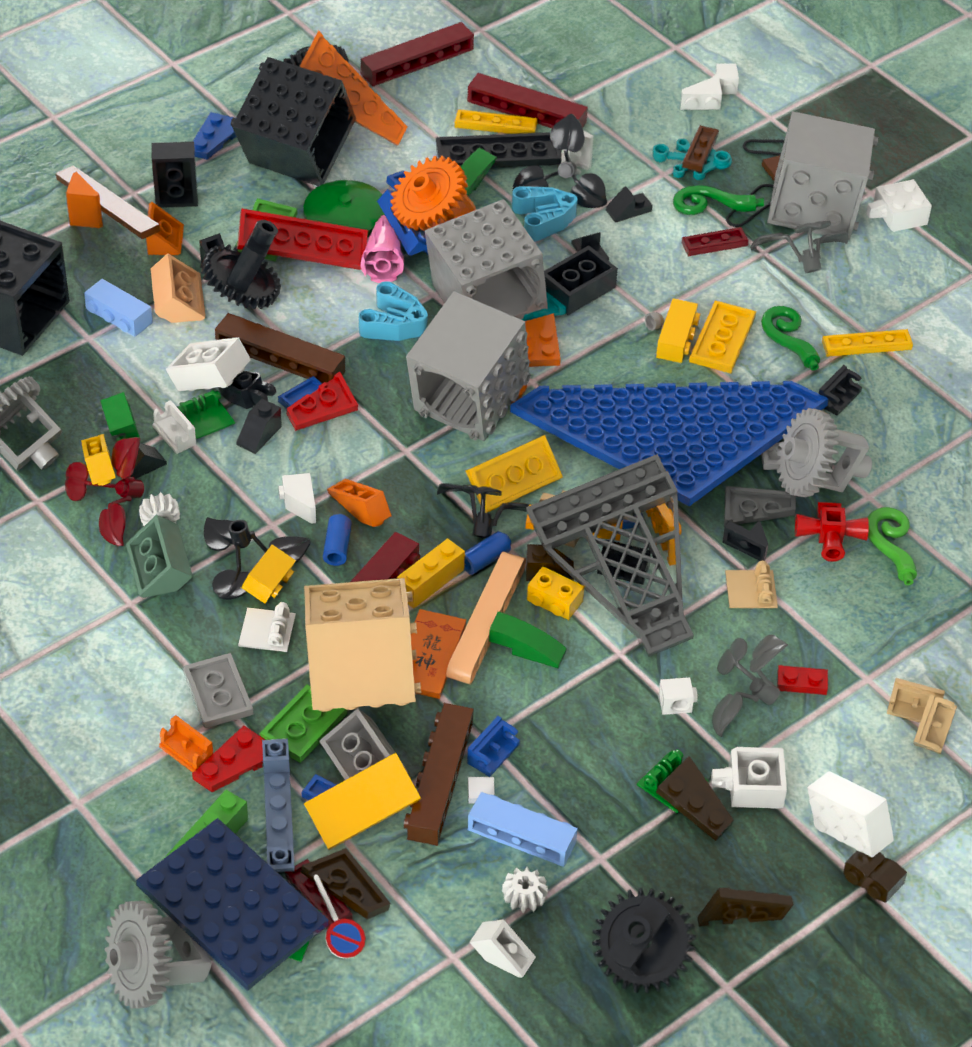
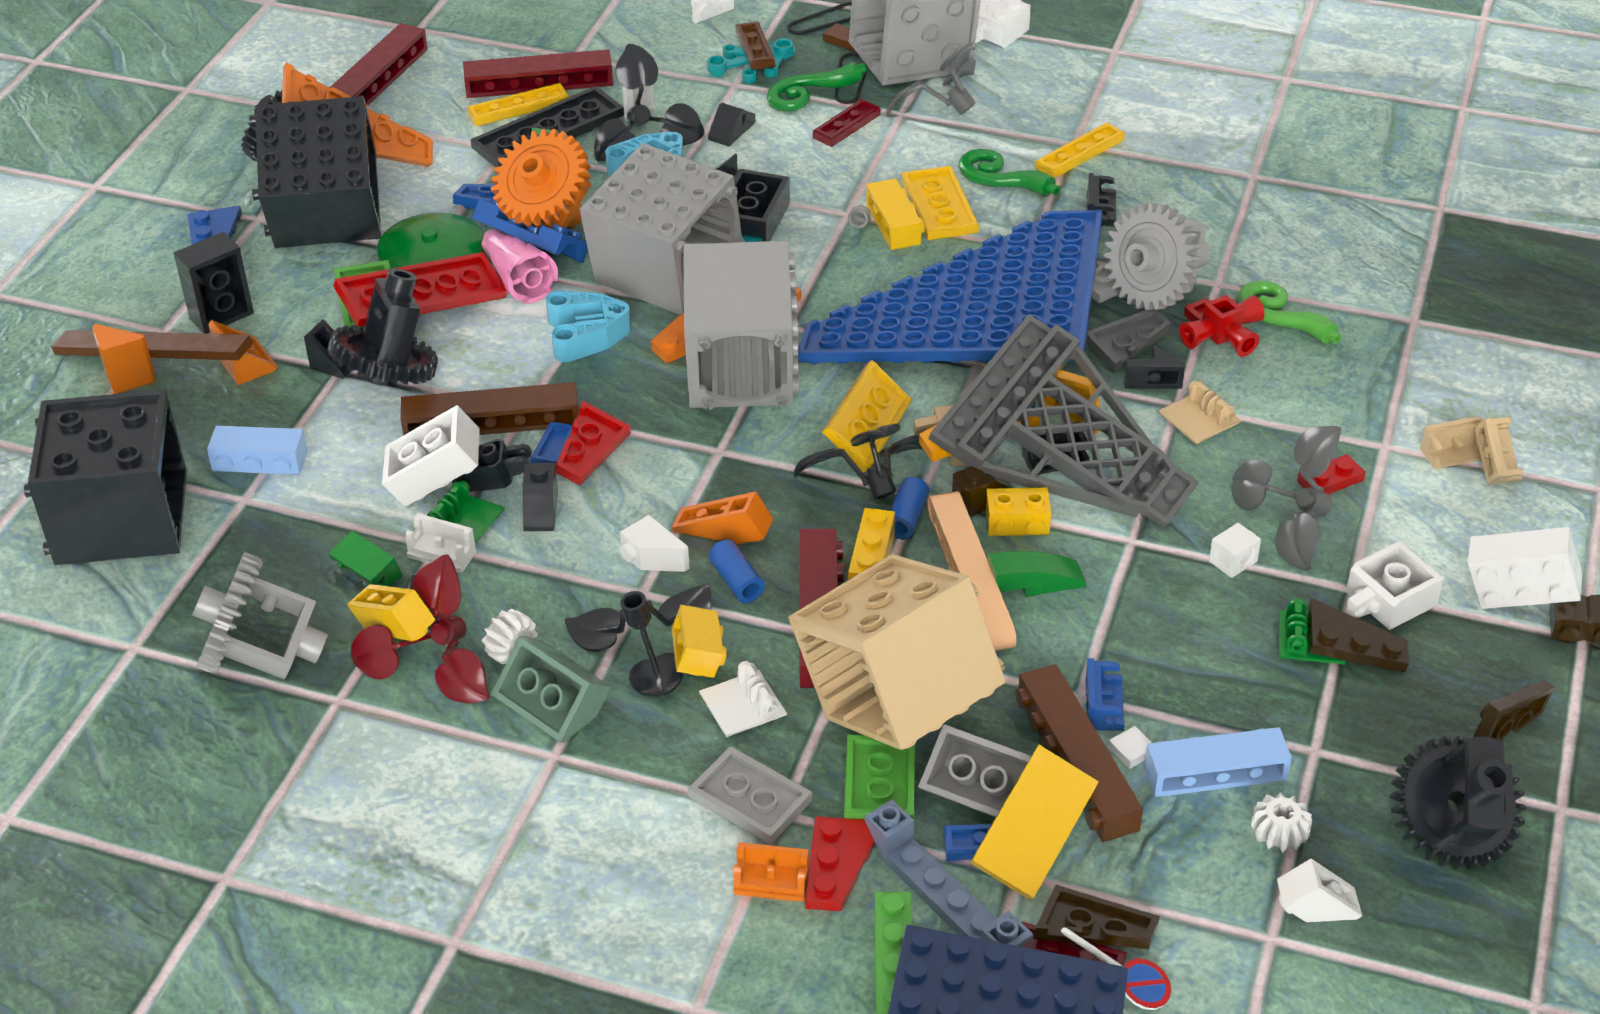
camera: 30 degrees left, 5 degrees down
(177, 291) = (312, 404): light nougat slope -> none

